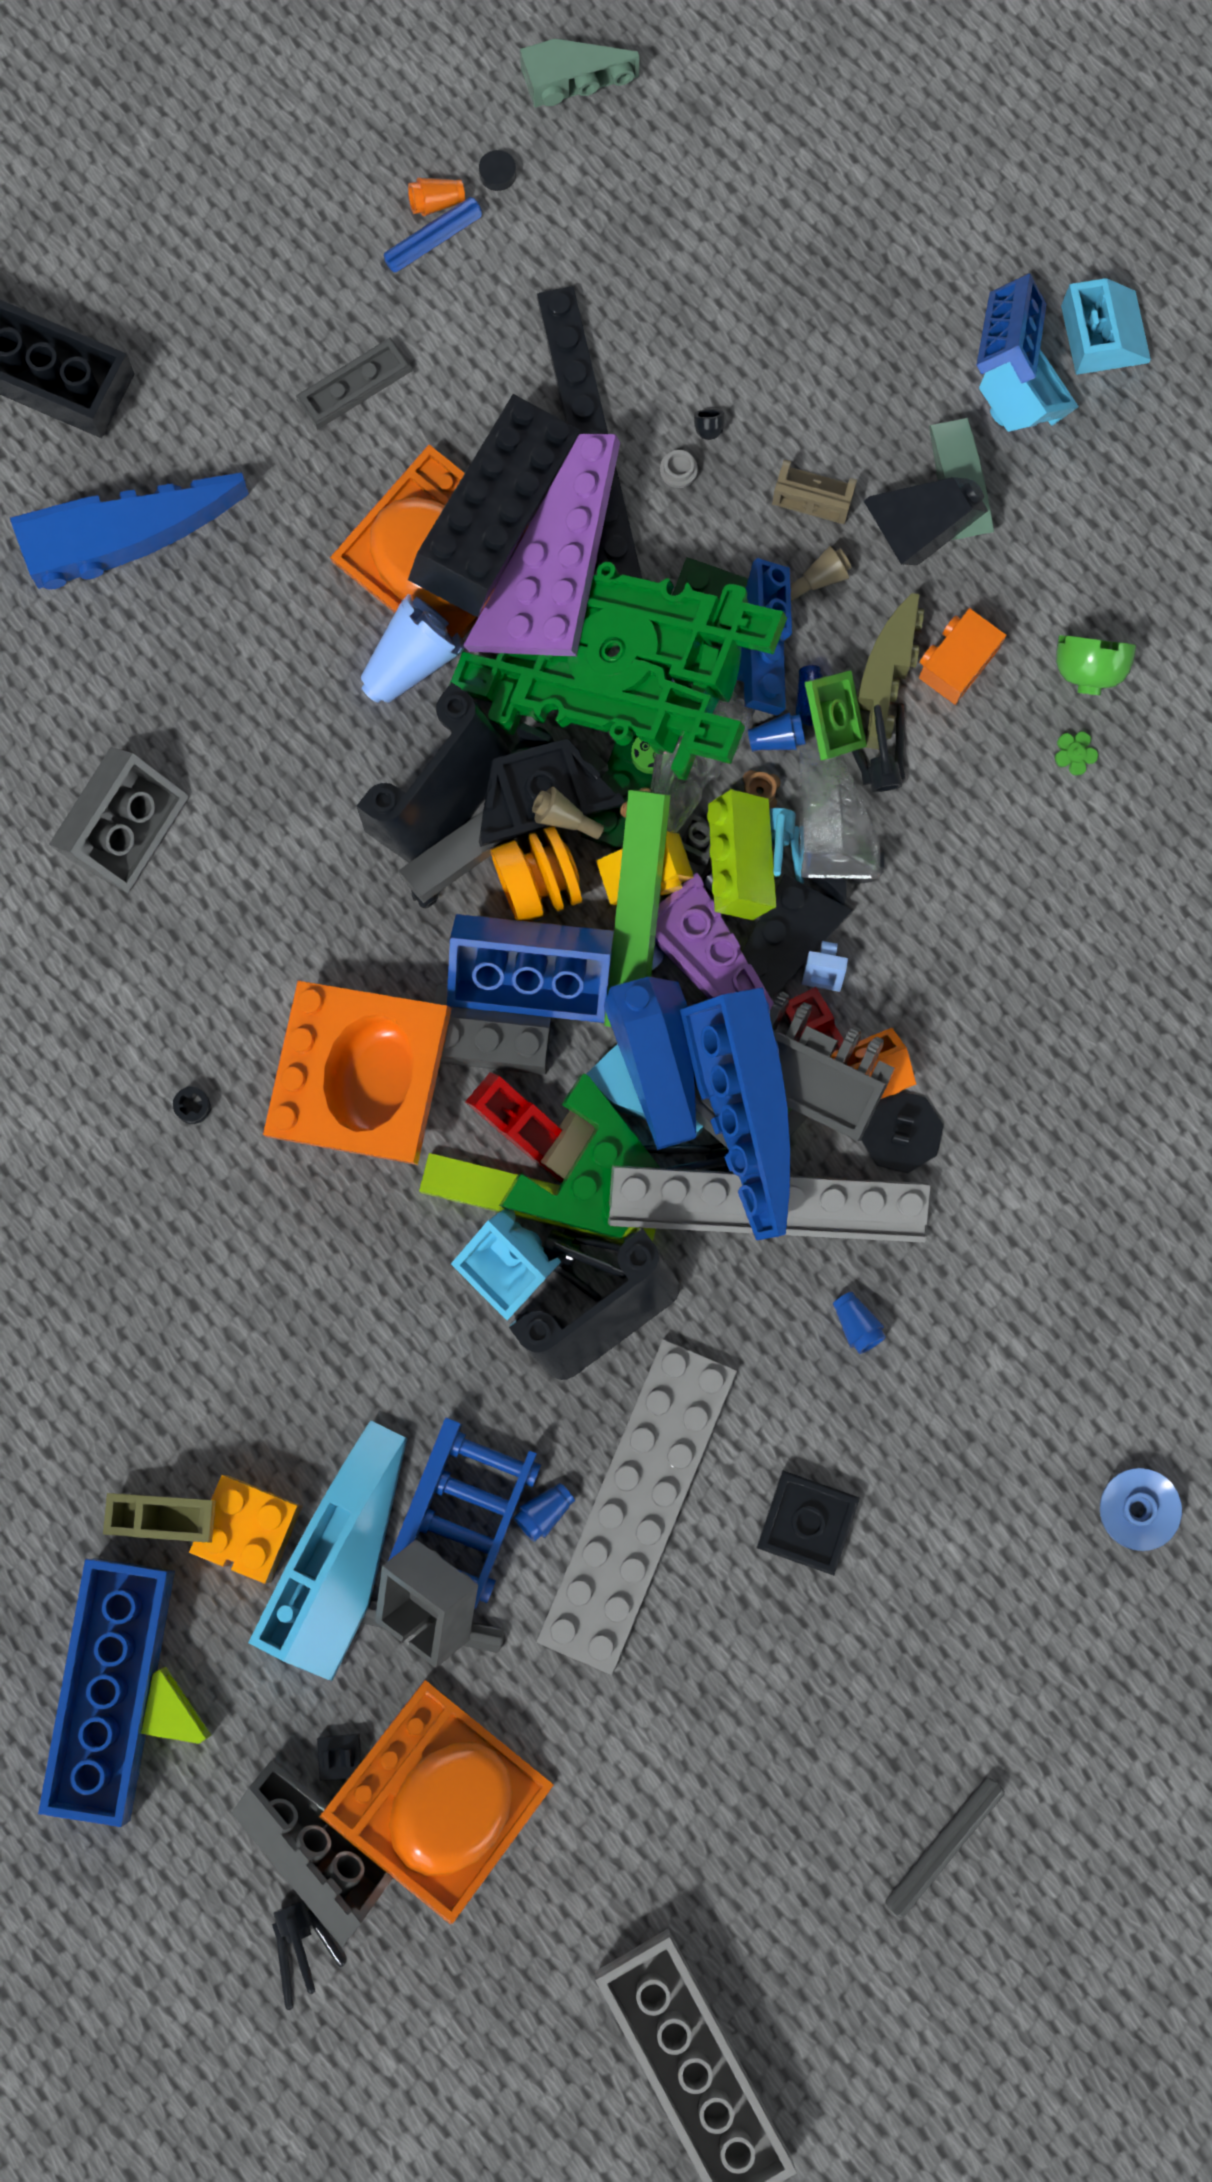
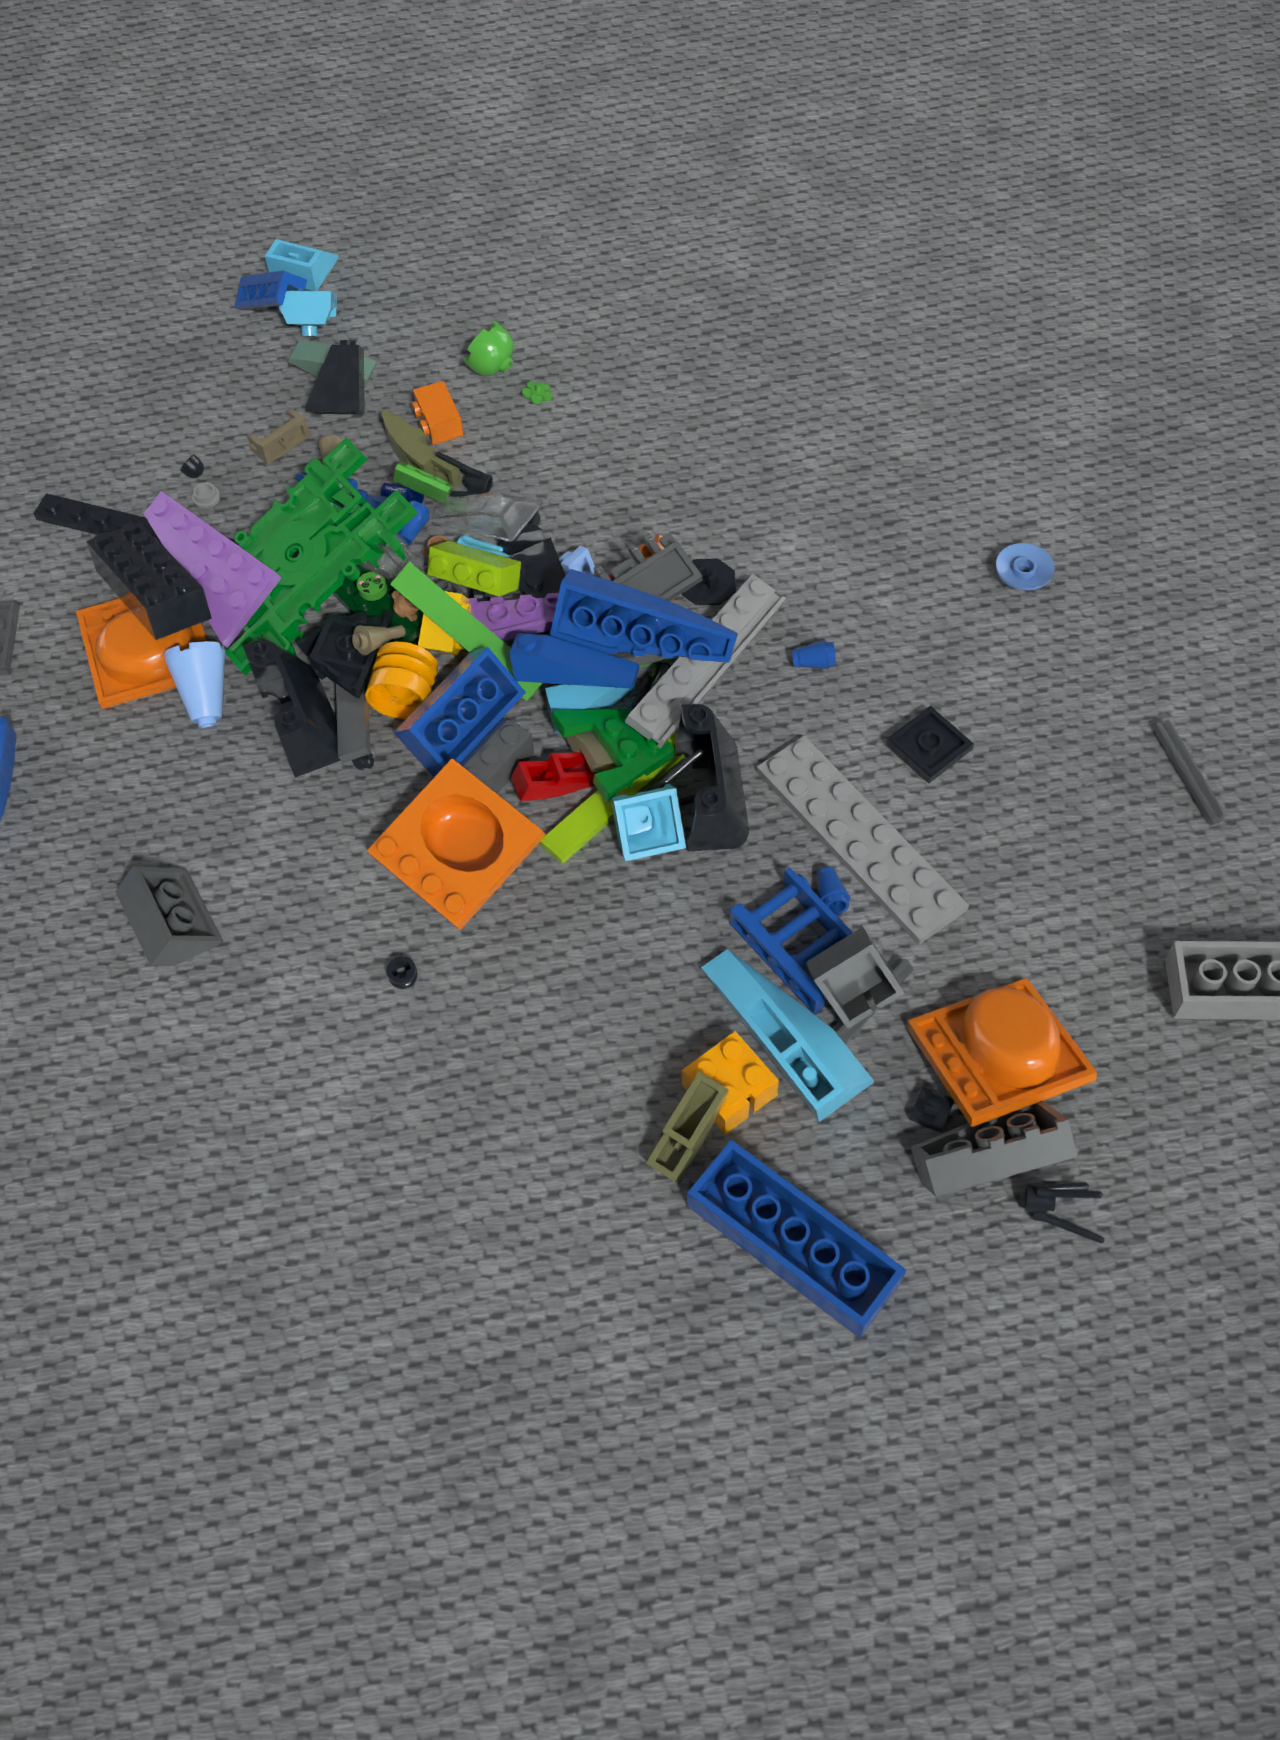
camera: 55 degrees left, 20 degrees down
(170, 1712) = (841, 1200): lime slope -> none

